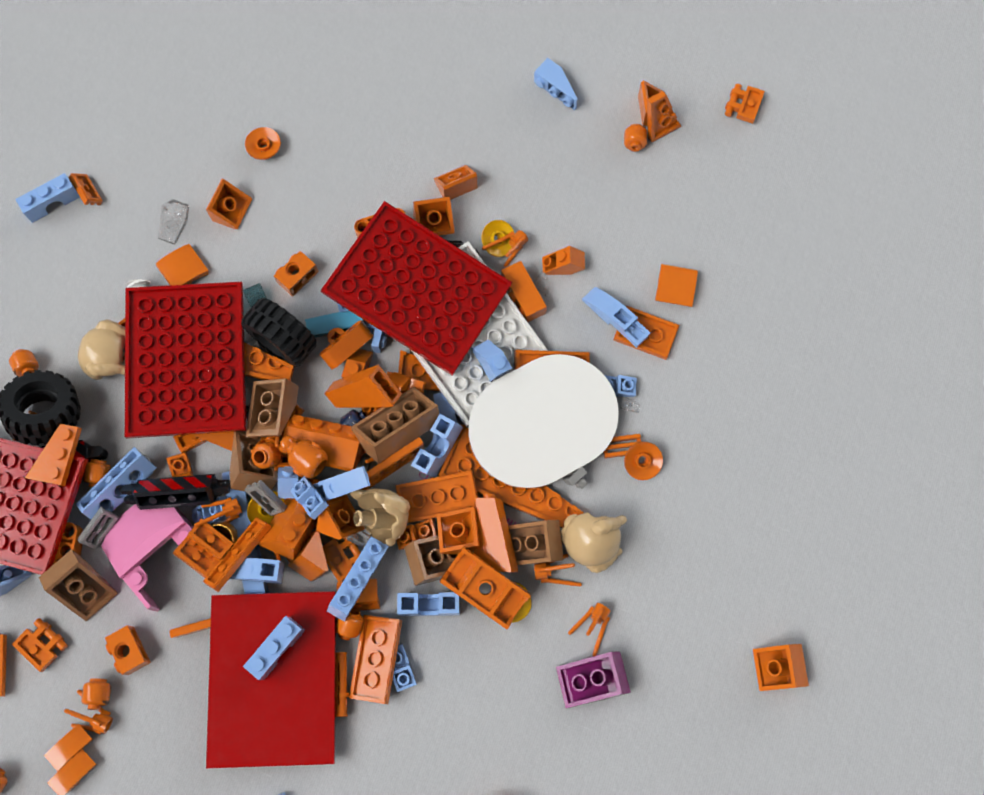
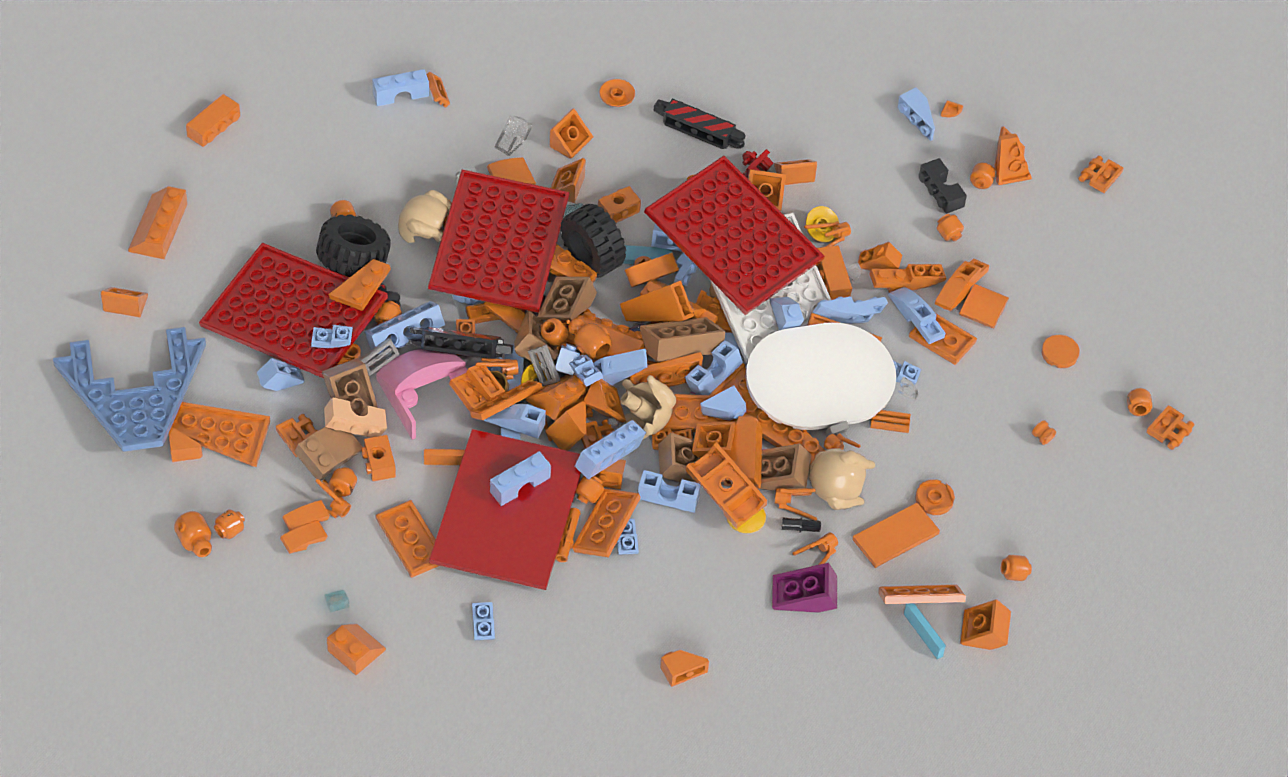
camera: 10 degrees right, 20 degrees down
(40, 529) = (331, 338): none -> light blue slope
(71, 624) = (341, 417): none -> light nougat arch
(72, 657) = (327, 451): none -> medium nougat slope
(179, 734) = (408, 537): none -> orange tile
(240, 259) = (570, 178): none -> orange slope
(351, 156) = (699, 124): none -> black hinge
(421, 181) = (753, 162): none -> red hips
(461, 487) = (724, 405): none -> light blue slope
(550, 334) = (847, 311): none -> light blue slope
(568, 599) = (801, 524): none -> black axle
(576, 494) = (834, 441): none -> orange plant
(585, 70) = (951, 109): none -> orange tile
(596, 276) = (913, 277): none -> orange slope
(608, 171) = (934, 176): none -> black arch
(621, 206) = (950, 227): none -> orange head
(649, 268) = (960, 283): none -> orange slope
(651, 464) = (913, 427): orange dish -> none
(663, 581) = (896, 535): none -> orange tile
(688, 523) = (935, 497): none -> orange tile
(710, 652) = (921, 594): none -> orange tile
(723, 691) = (924, 630): none -> medium azure tile
(761, 315) = (1060, 351): none -> orange tile
(773, 417) = (1044, 432): none -> orange wheel
(790, 587) = (1015, 567): none -> orange head
(854, 354) = (1139, 402): none -> orange head
(884, 372) = (1166, 423): none -> orange plate

